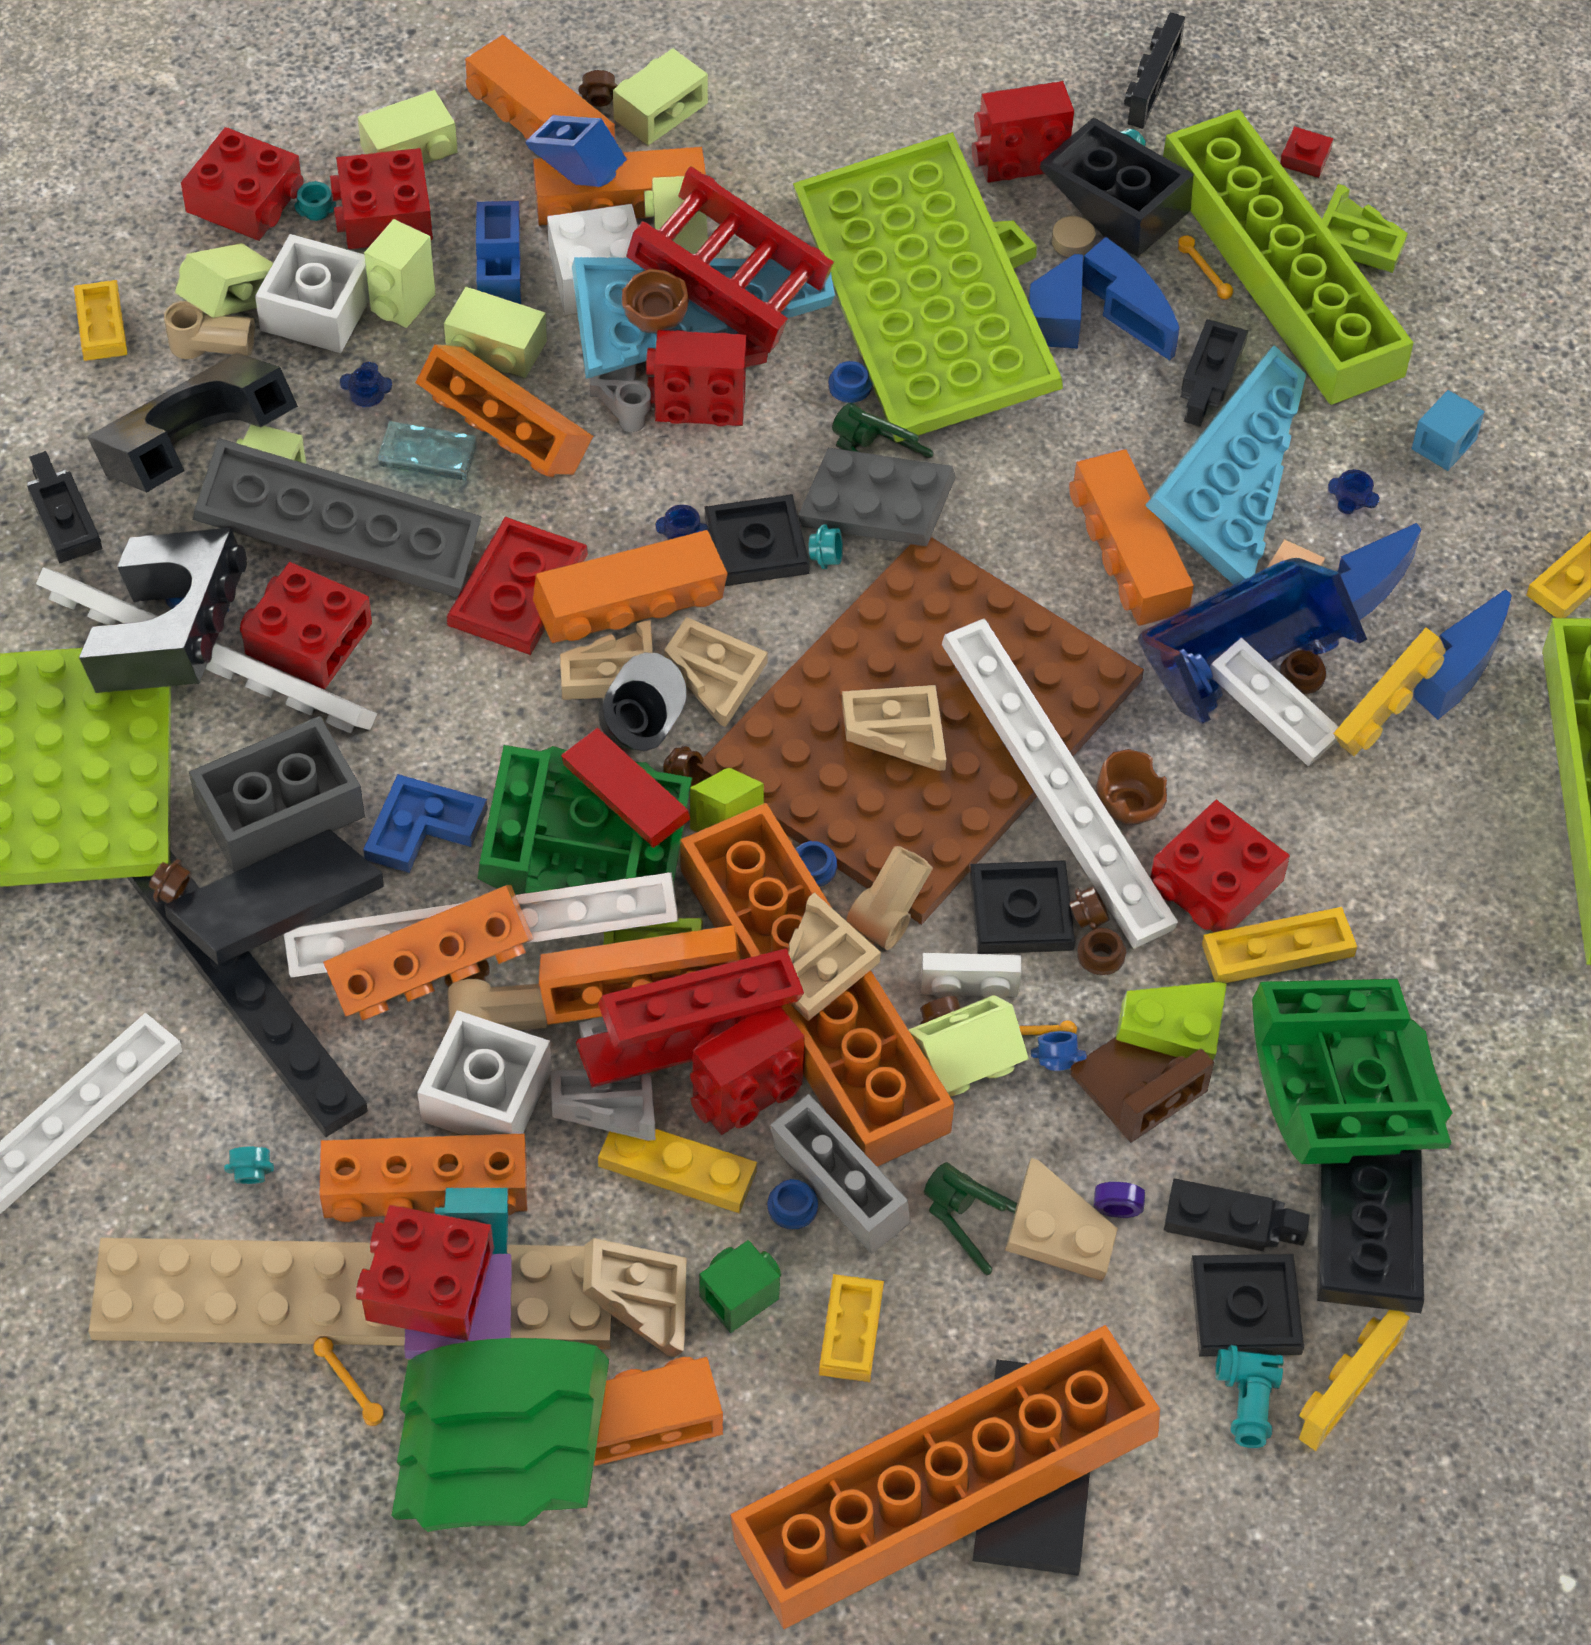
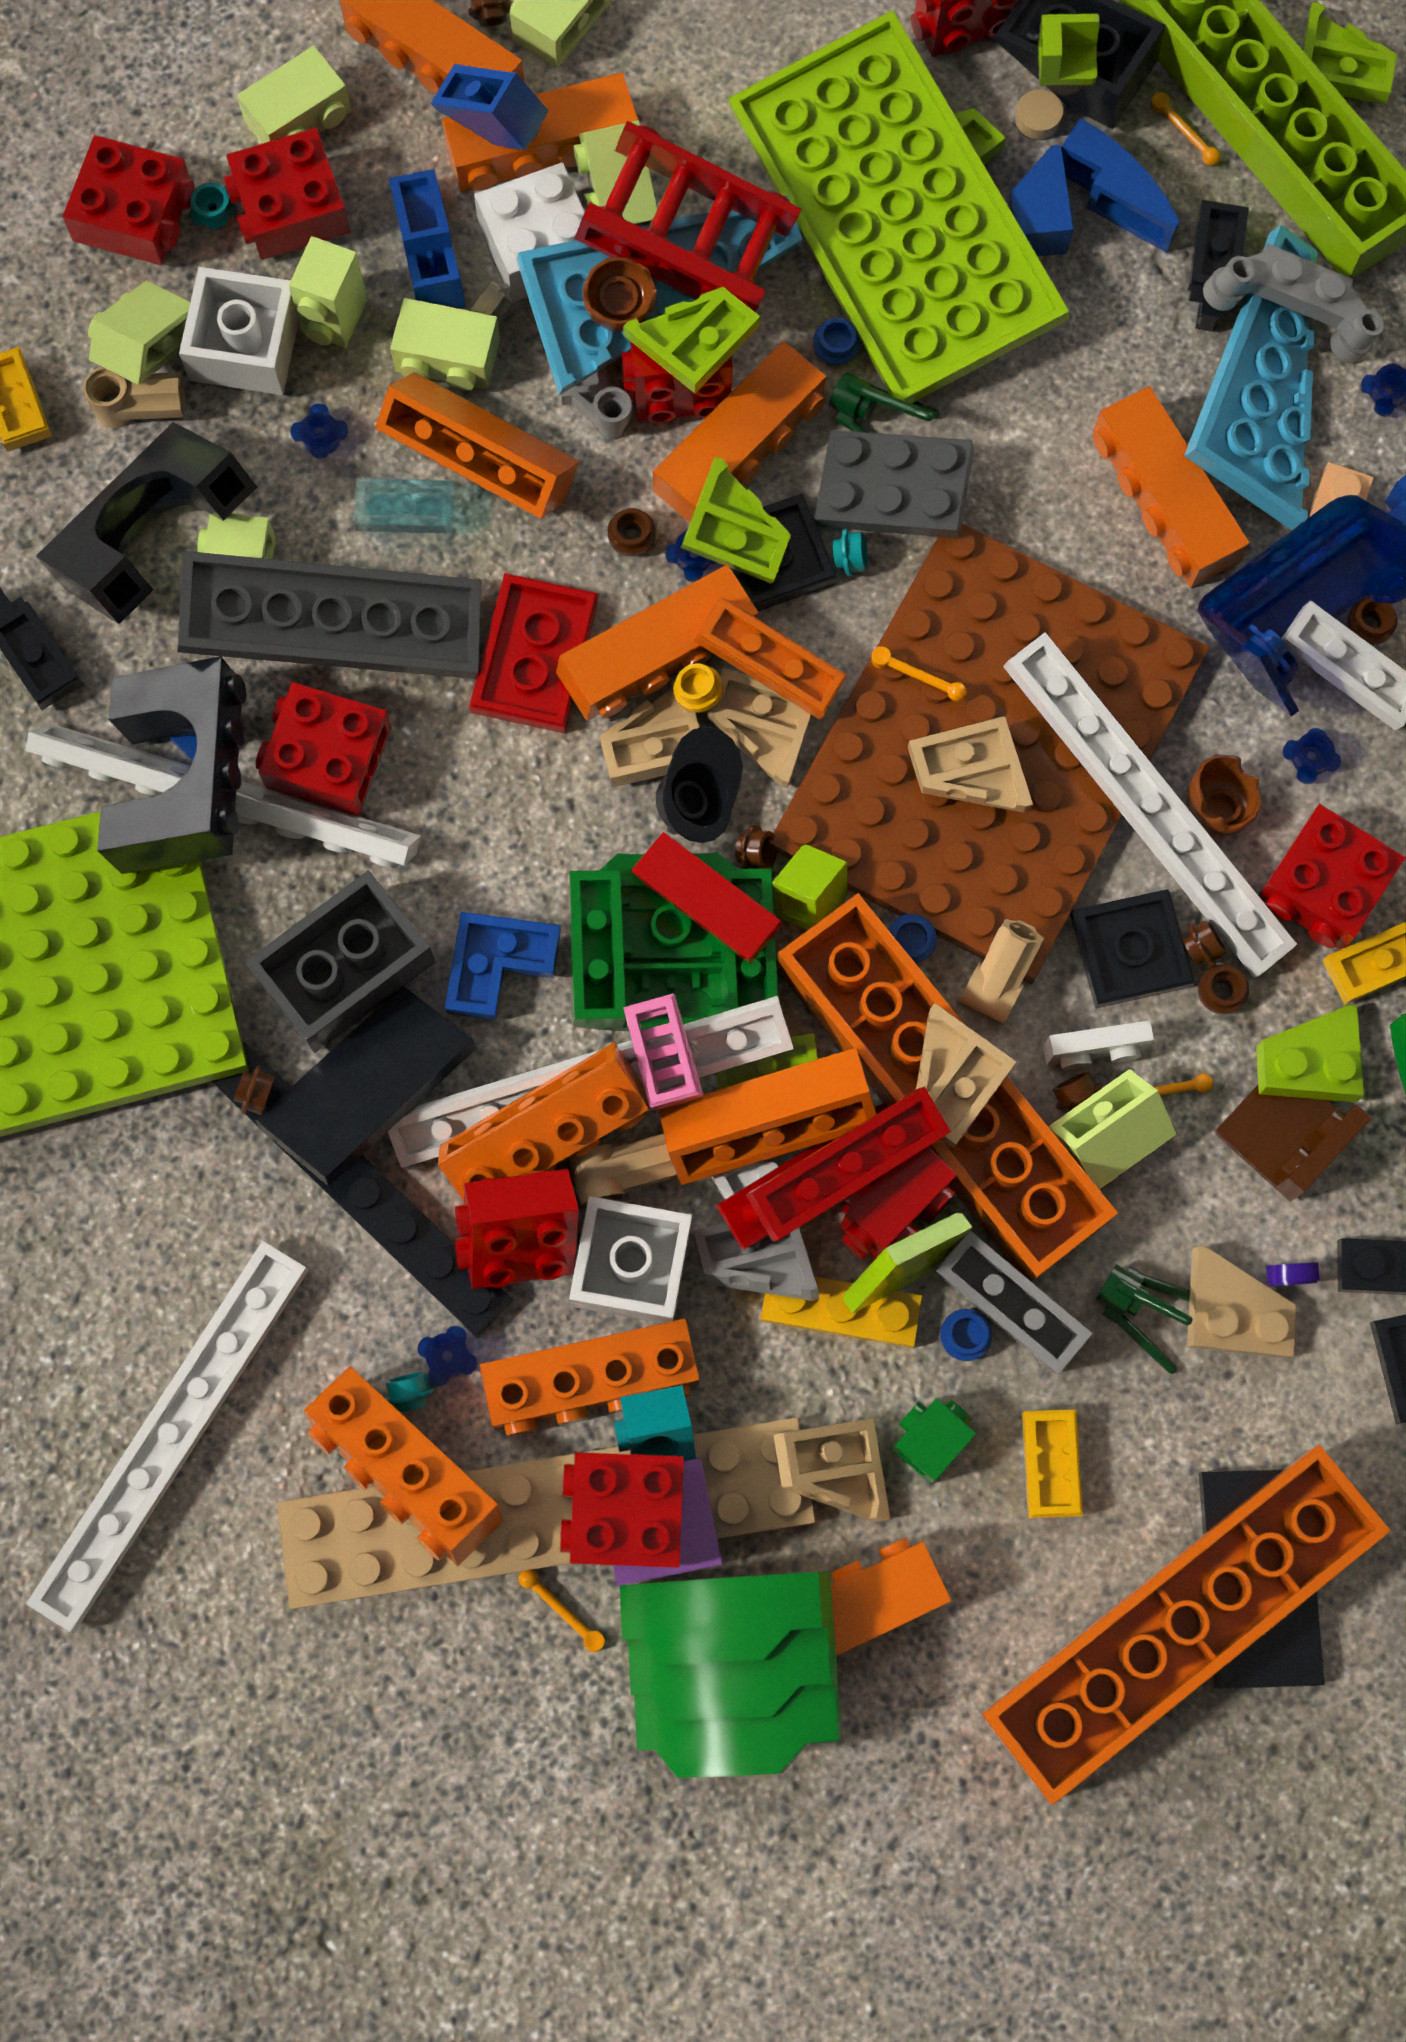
camera: 10 degrees left, 20 degrees up
(227, 1215) = (403, 1466): none -> orange brick
(293, 1129) = (433, 1349): none -> clear blue plate
(383, 1028) = (517, 1229): none -> red brick
(547, 302) = (492, 300): none -> dark tan plate
(559, 930) = (677, 1095): none -> bright pink slope
(630, 493) = (631, 519): none -> reddish brown plate
(658, 624) = (698, 688): none -> yellow plate
(714, 336) = (695, 335): none -> lime wing
(721, 502) = (734, 527): none -> lime wing
(730, 609) = (770, 658): none -> orange tile
(739, 1113) = (906, 1261): none -> lime tile
(744, 439) = (743, 427): none -> orange brick
(834, 630) = (882, 658): none -> light orange hinge
(1058, 1050) = (1201, 1113): blue plate -> none
(1100, 176) = (1068, 49): none -> lime panel
(1224, 762) = (1317, 743): none -> clear blue plate
(1281, 394) = (1302, 288): none -> light grey plate

